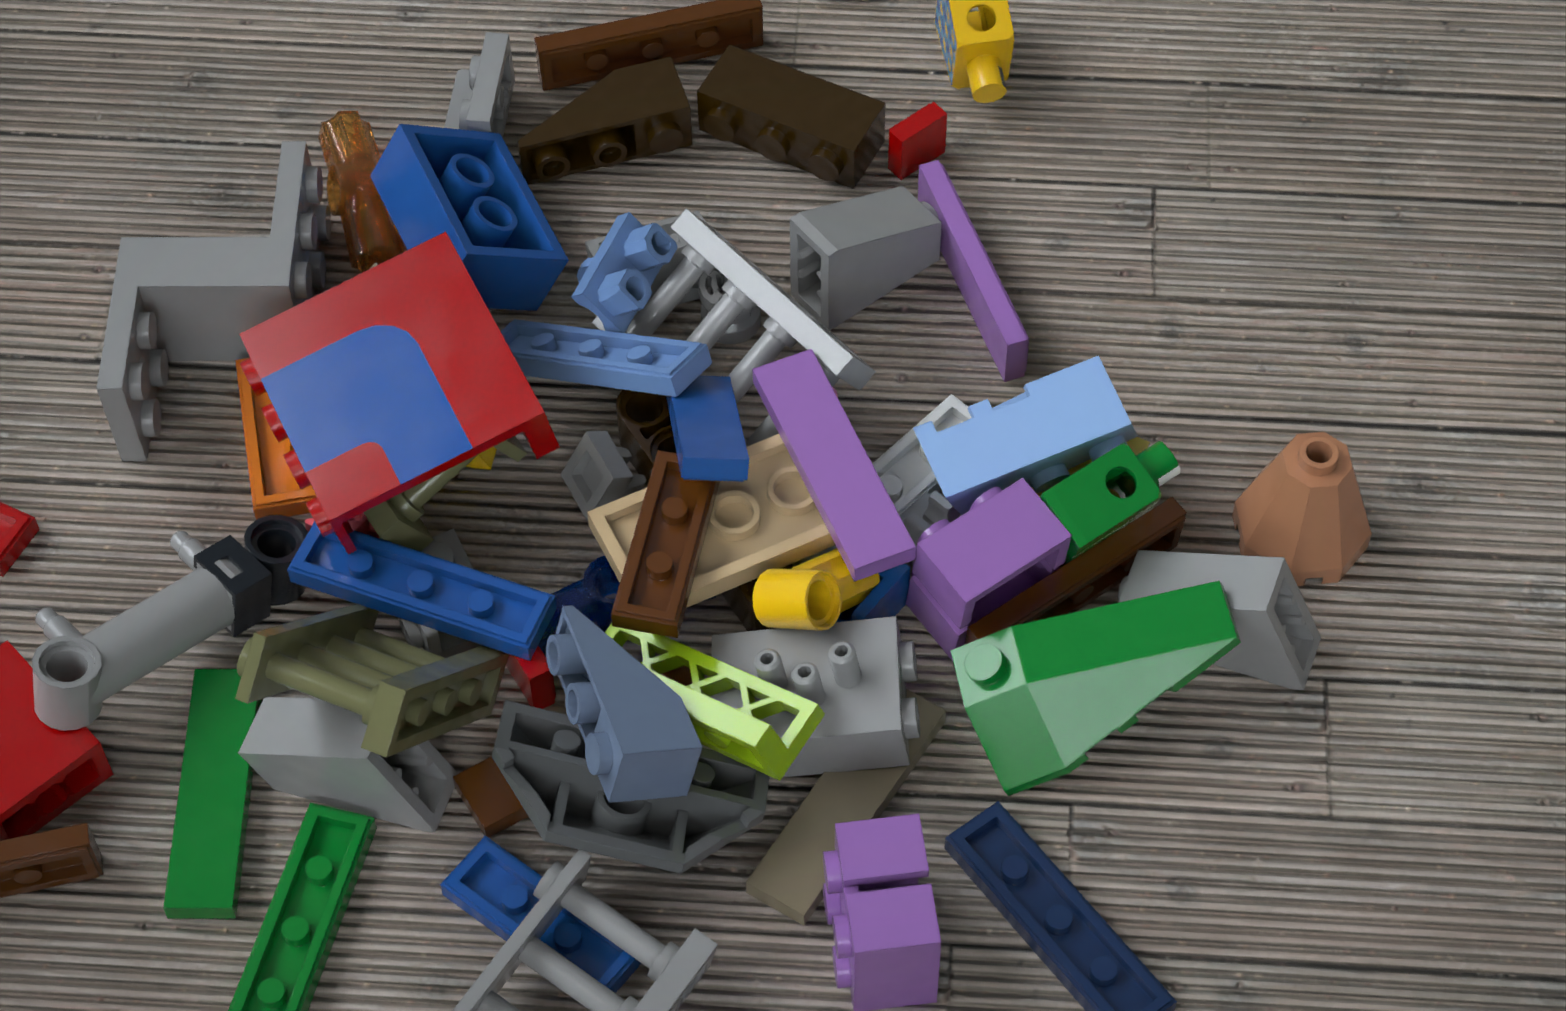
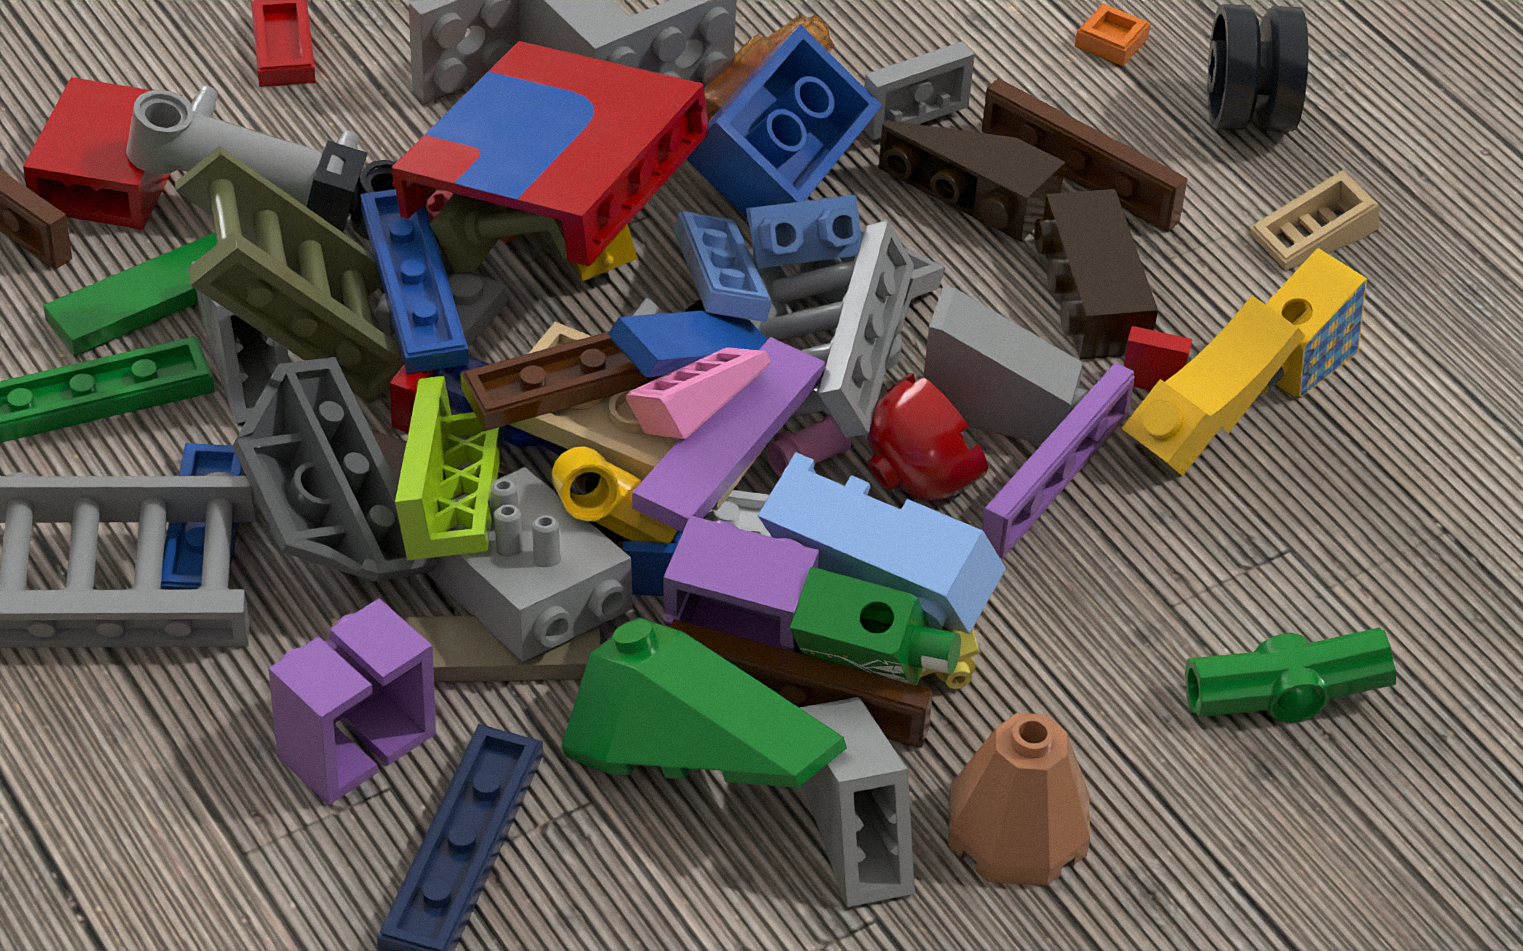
camera: 50 degrees right, 10 degrees down
(628, 717) = (363, 434): sand blue slope -> none
(806, 481) = (691, 395): none -> bright pink slope
(900, 339) = (921, 443): none -> red cylinder
(992, 119) = (1214, 387): none -> yellow slope
(1297, 264) = (1290, 675): none -> green piece

